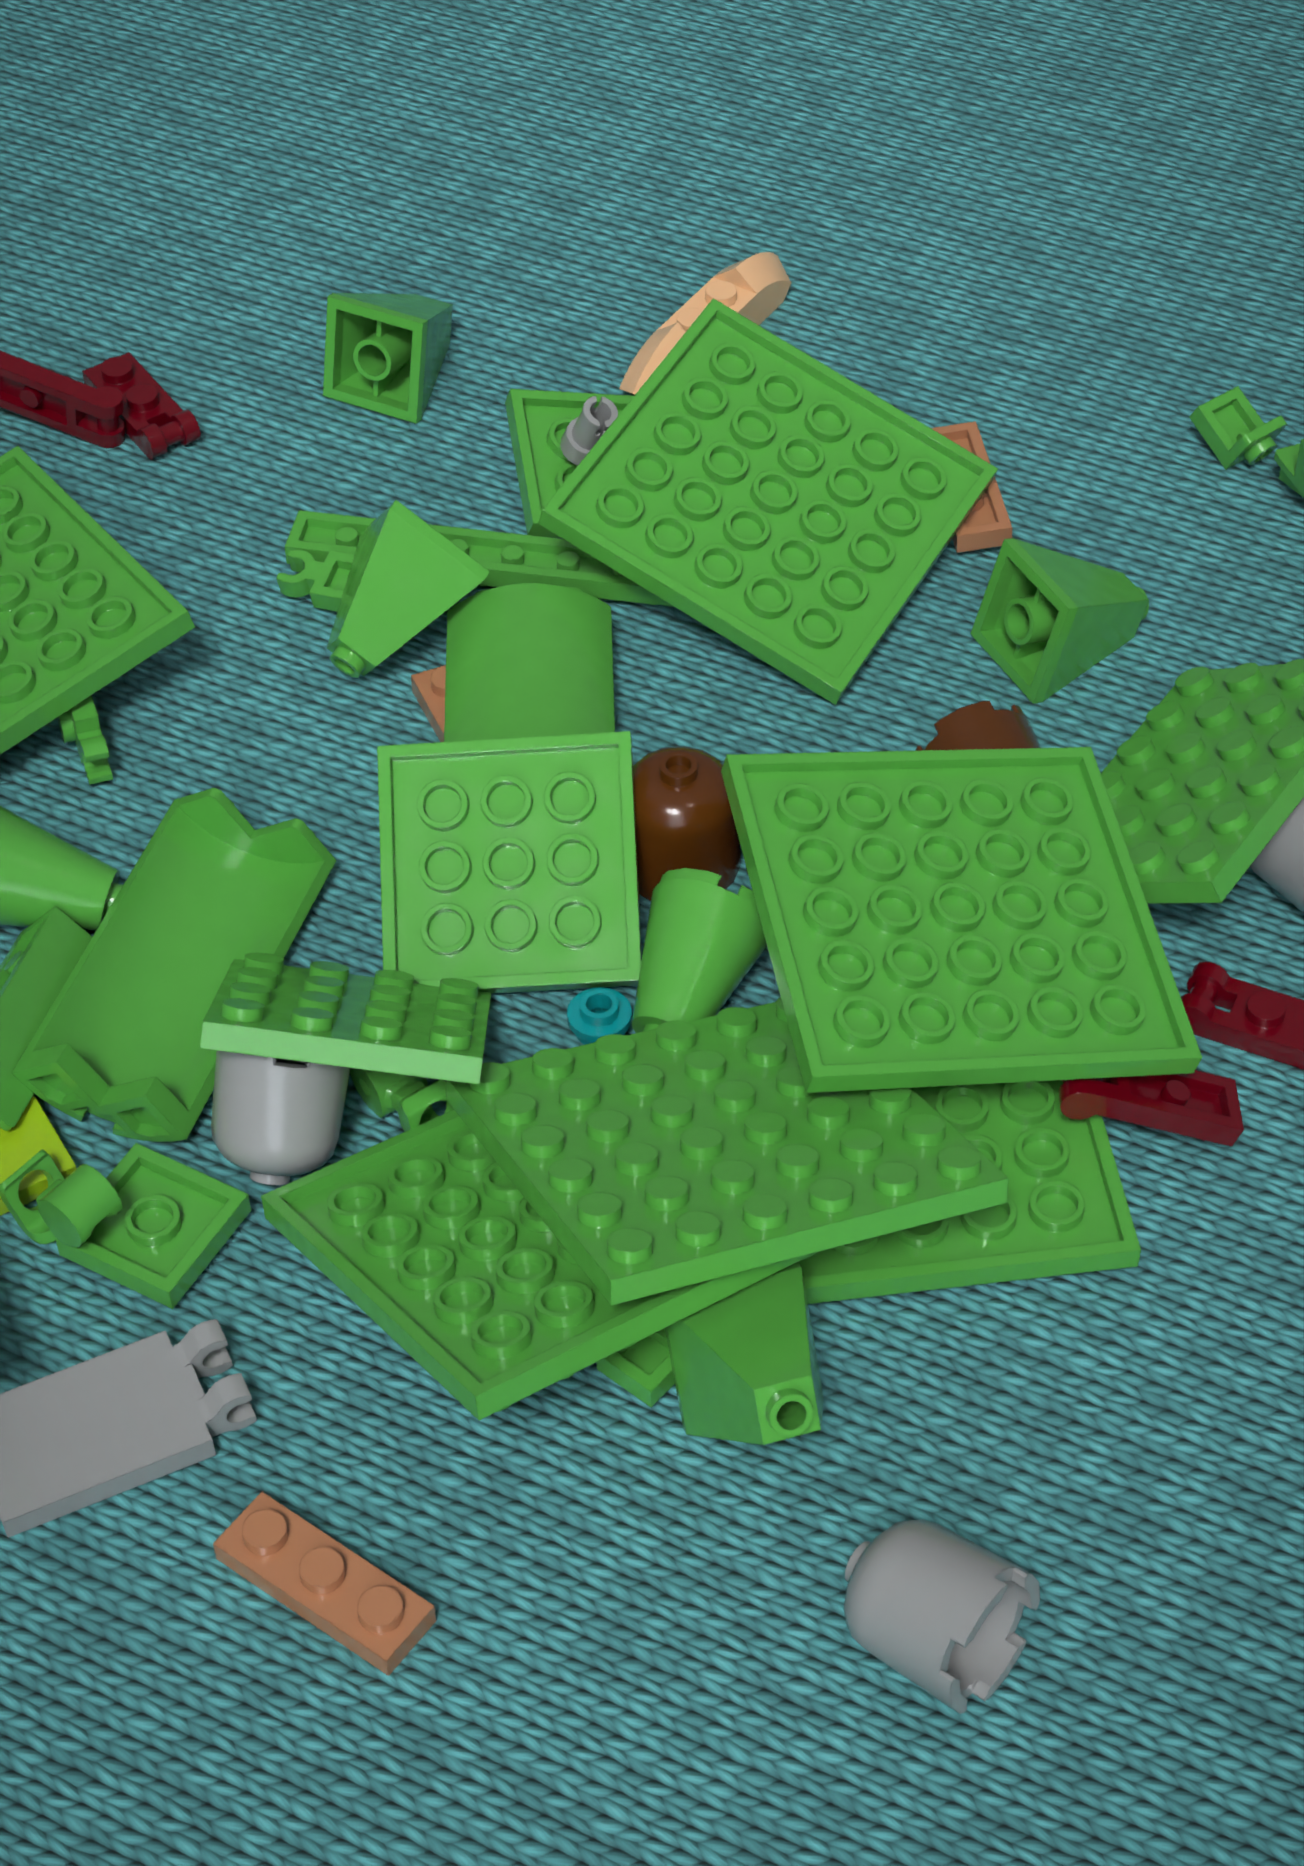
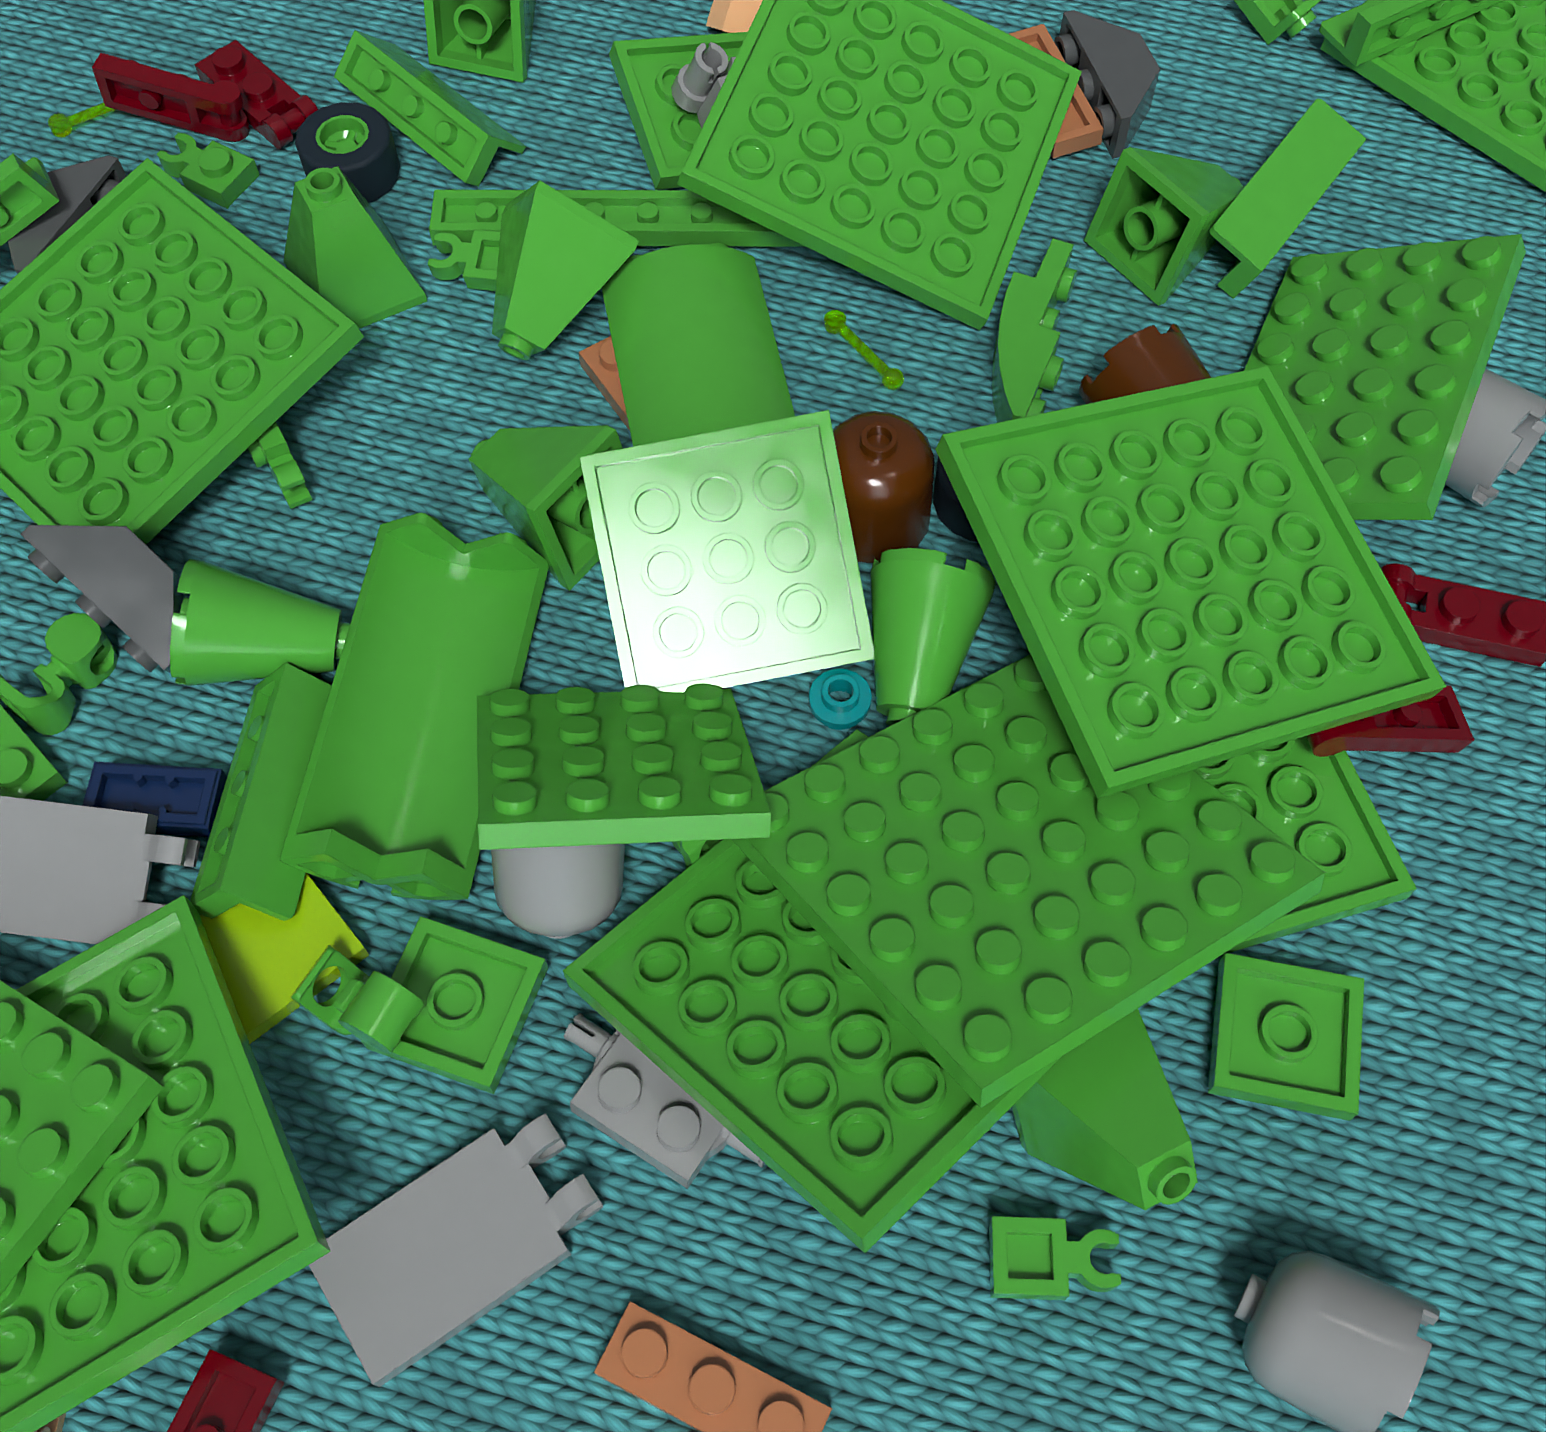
camera: 10 degrees left, 15 degrees up
(81, 472) = (211, 173): none -> bright green plate
(199, 552) = (347, 251): none -> bright green slope
(219, 469) = (356, 141): none -> black wheel
(306, 434) = (423, 107): none -> bright green panel
(328, 1338) = (645, 1107): none -> light grey plate
(335, 791) = (542, 492): none -> bright green slope
(667, 1512) = (1036, 1260): none -> bright green plate
(686, 681) = (836, 324): none -> clear neon green hinge
(887, 693) = (1027, 336): none -> bright green slope
(972, 1363) = (1287, 1036): none -> bright green plate
(1035, 477) = (1115, 75): none -> dark grey slope
(1185, 606) = (1284, 192): none -> bright green panel

